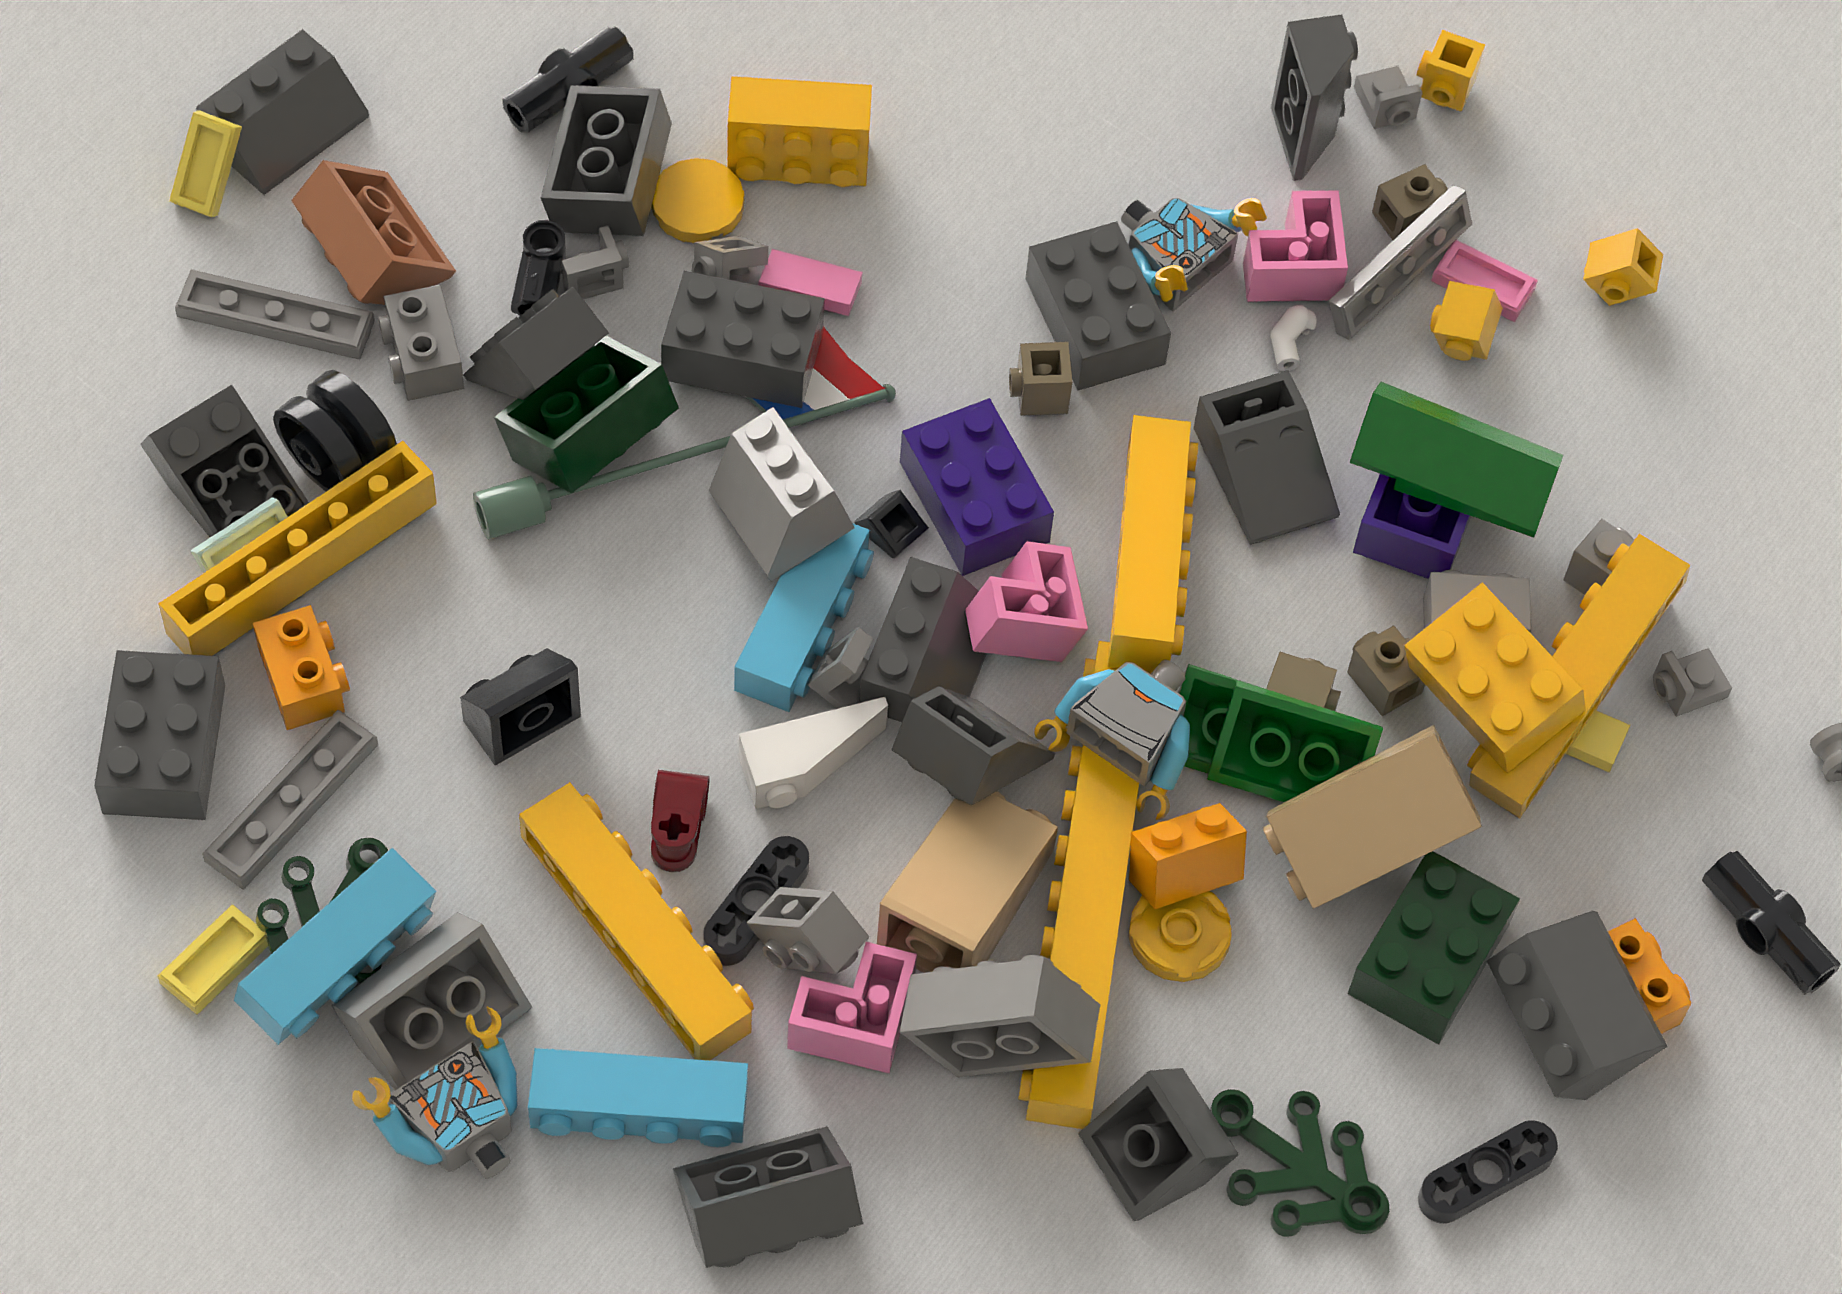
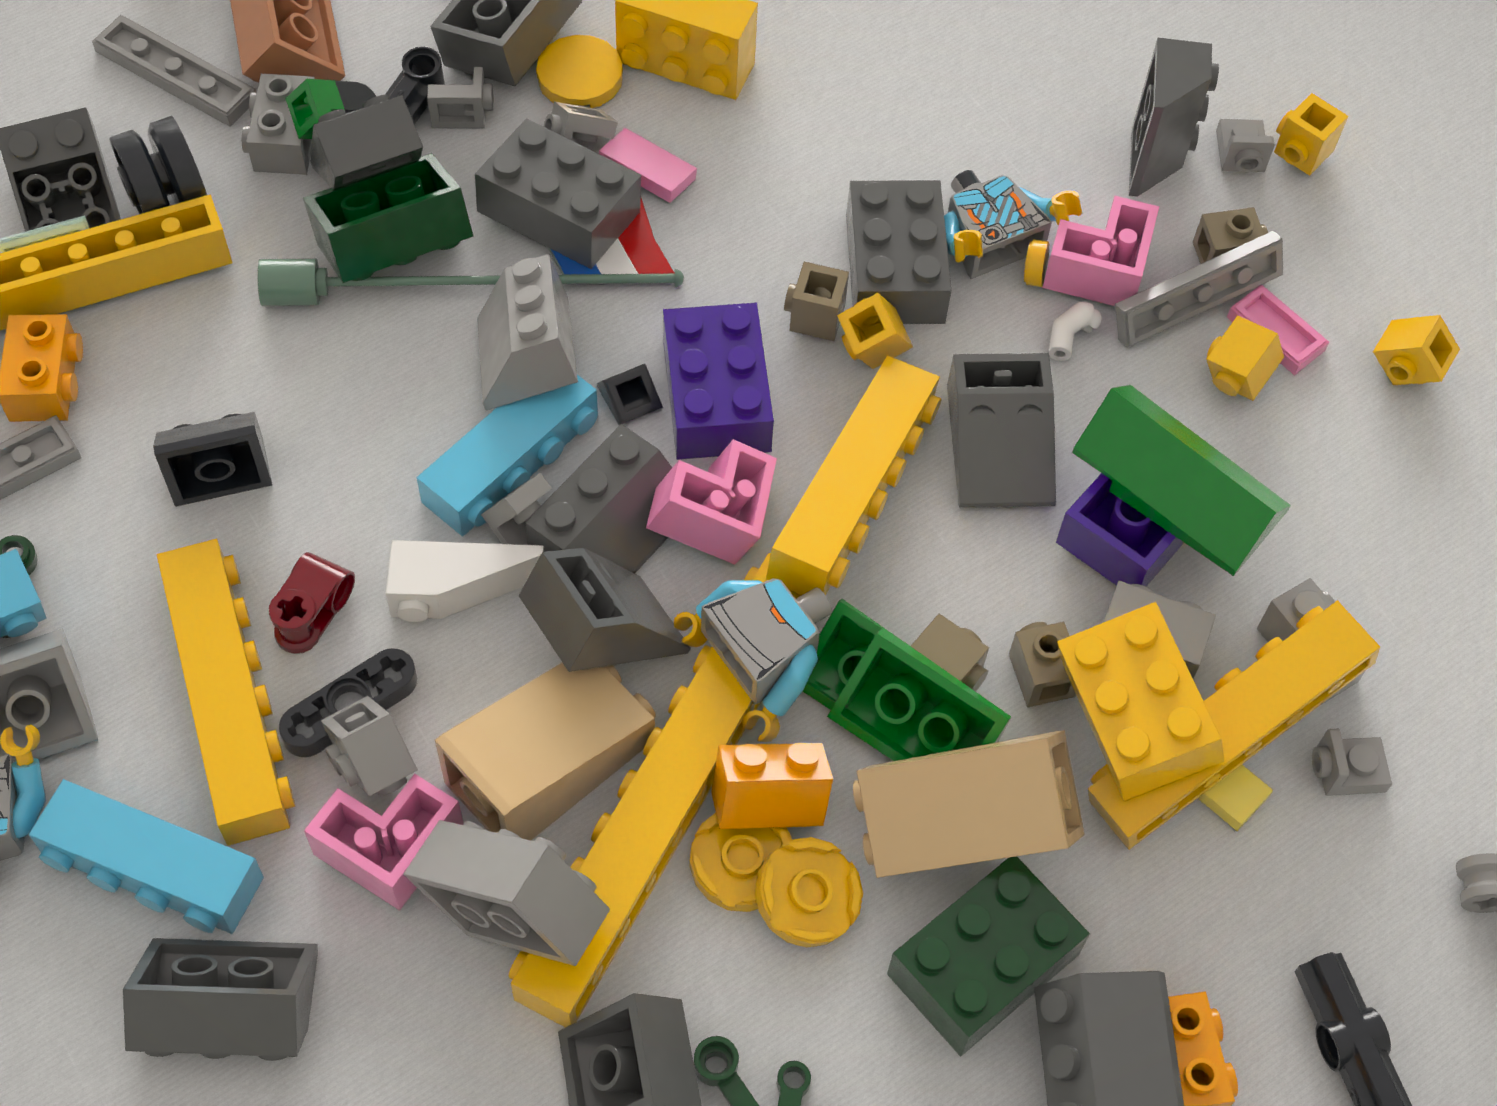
camera: 20 degrees right, 0 degrees up
(476, 313) = (319, 96): none -> green leg
(1108, 394) = (873, 331): none -> yellow brick
(1234, 278) = (1036, 262): none -> yellow tile
(1254, 942) = (808, 892): none -> yellow tile

